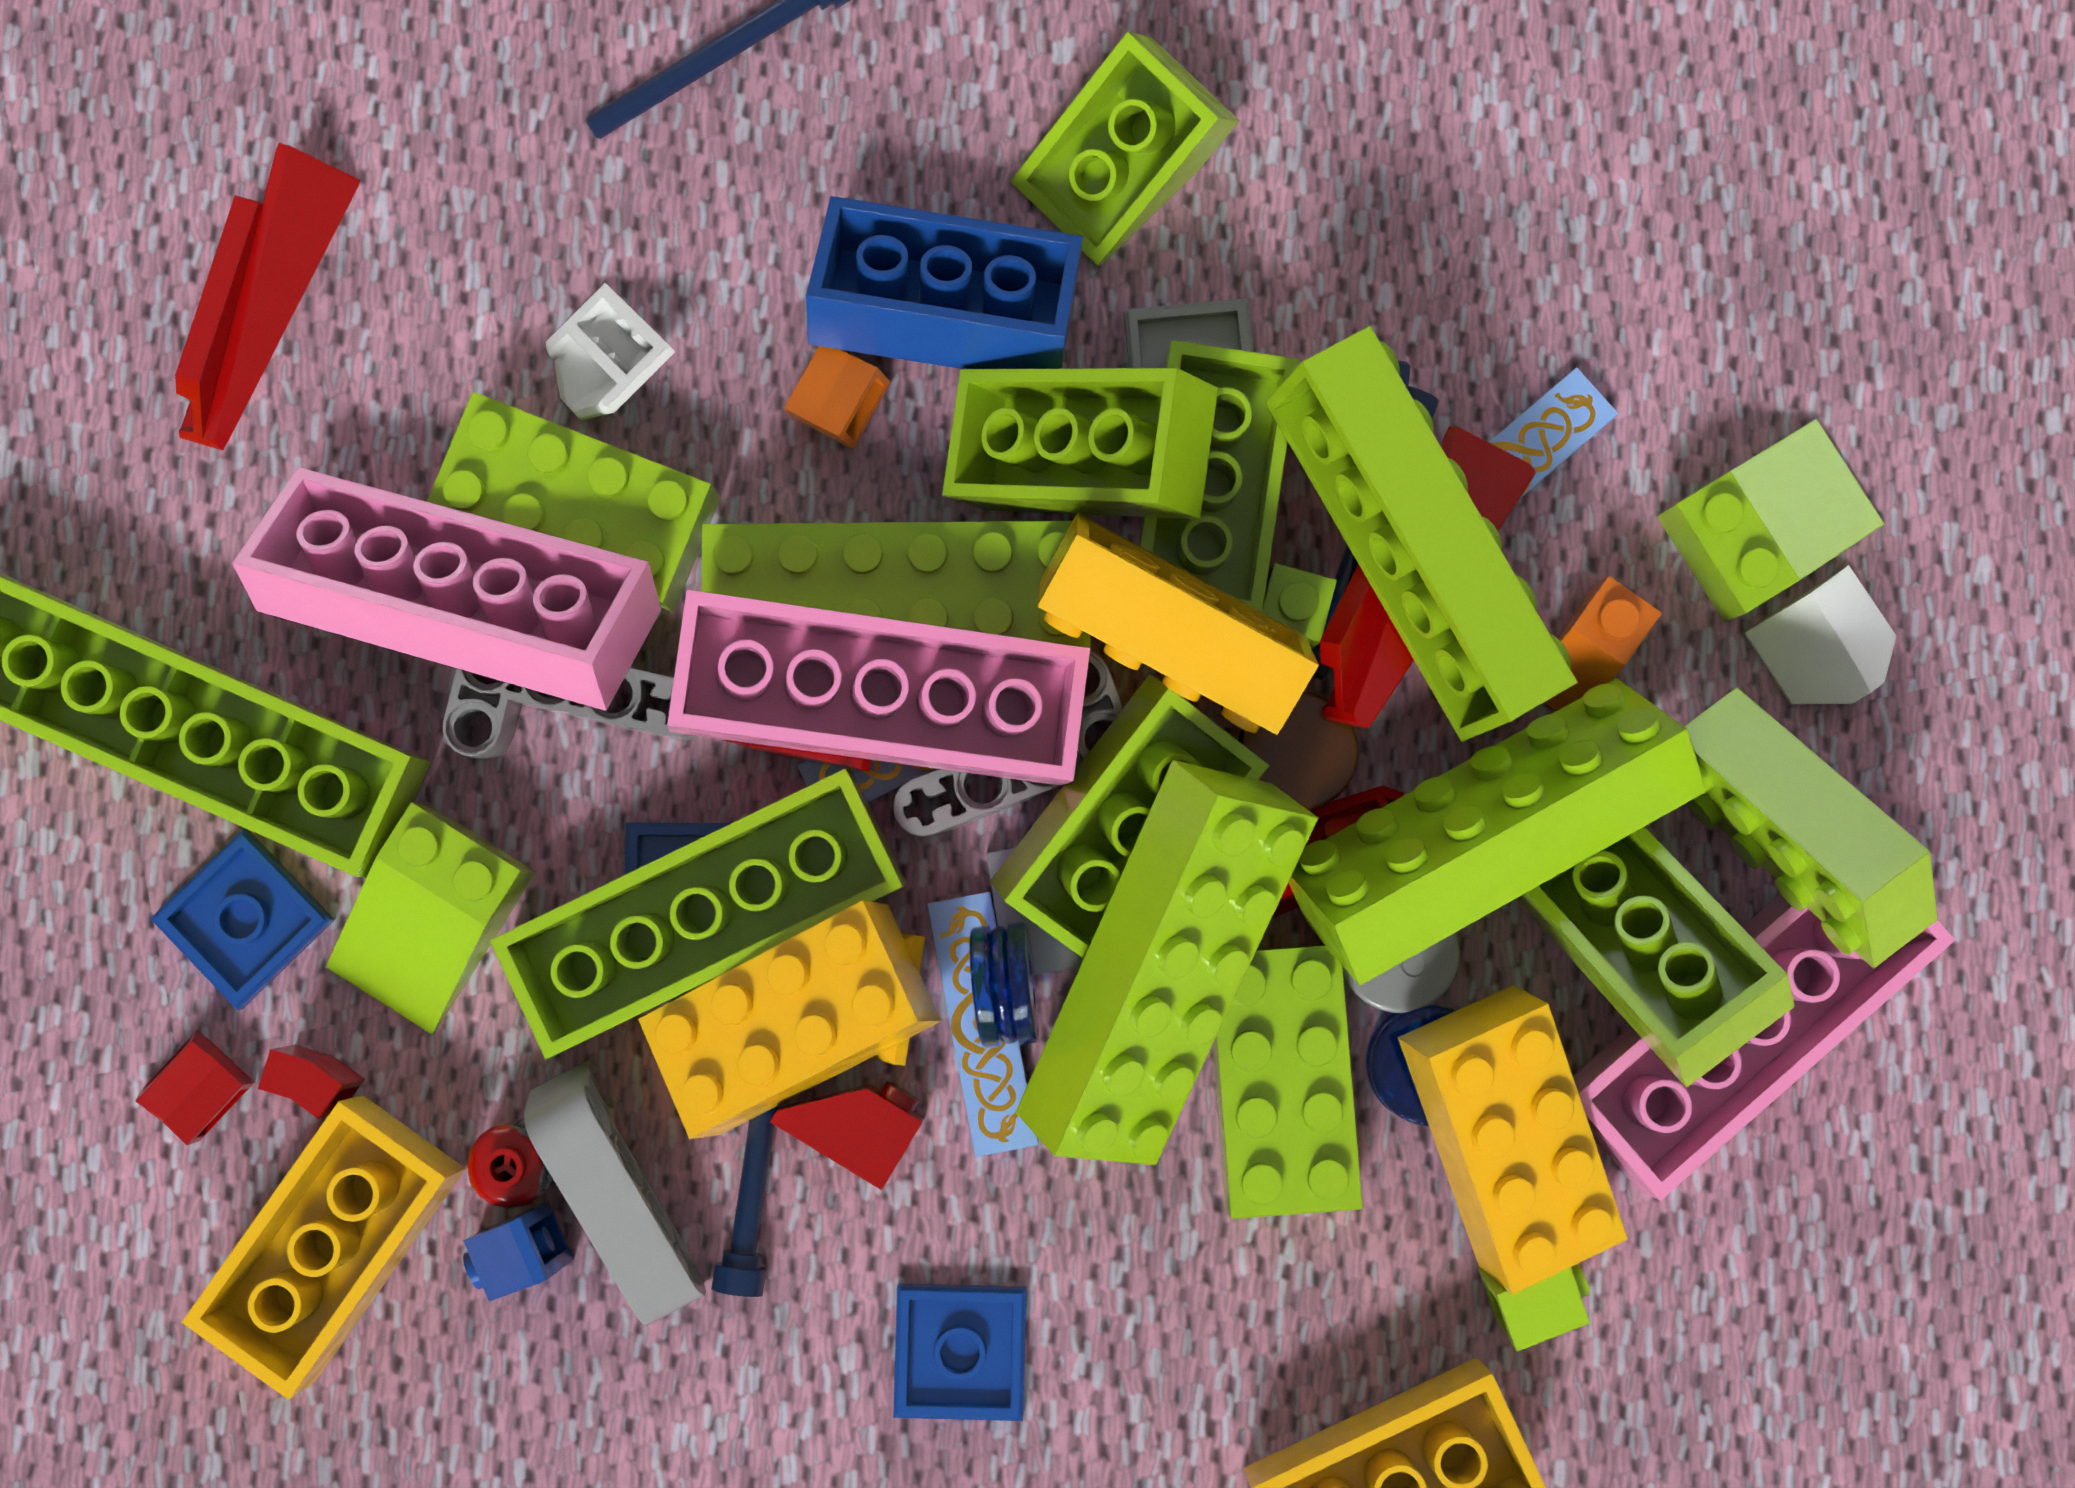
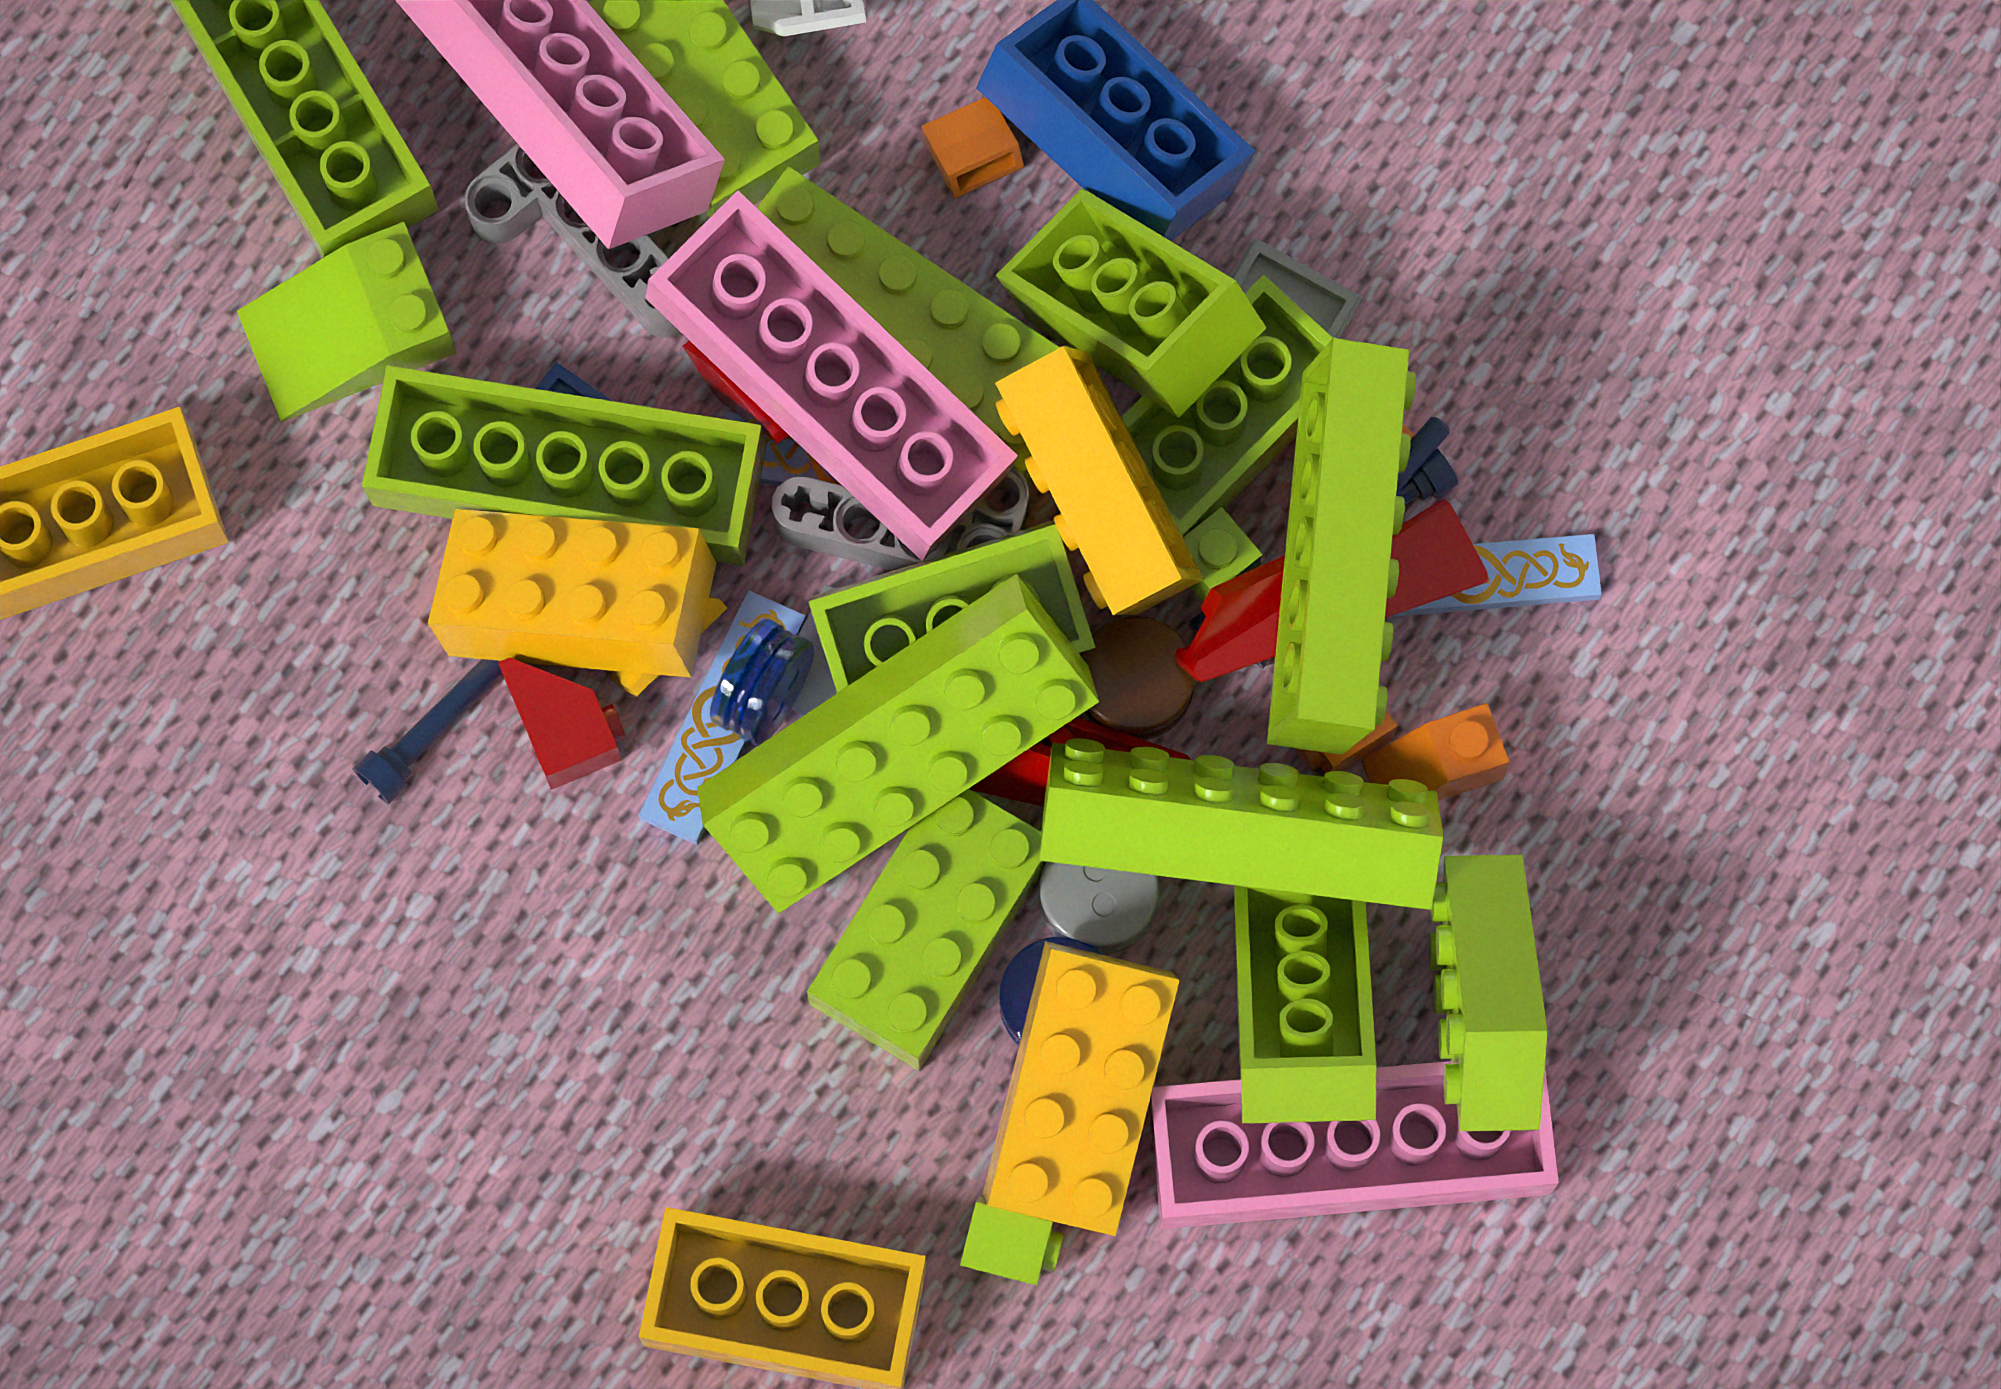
camera: 35 degrees right, 10 degrees down
(194, 1089) = (67, 332): red piece -> none
(242, 919) = (200, 229): blue tile -> none
(309, 1078) = (163, 378): red piece -> none
(493, 1170) = (280, 575): red head -> none
(516, 1252) = (224, 625): blue slope -> none
(610, 1194) = (330, 638): light grey beam -> none
(959, 1352) = (511, 962): blue tile -> none
(1123, 146) = (1348, 109): lime slope -> none
(1770, 521) = (1668, 764): lime slope -> none
(1826, 643) = (1643, 896): white slope -> none

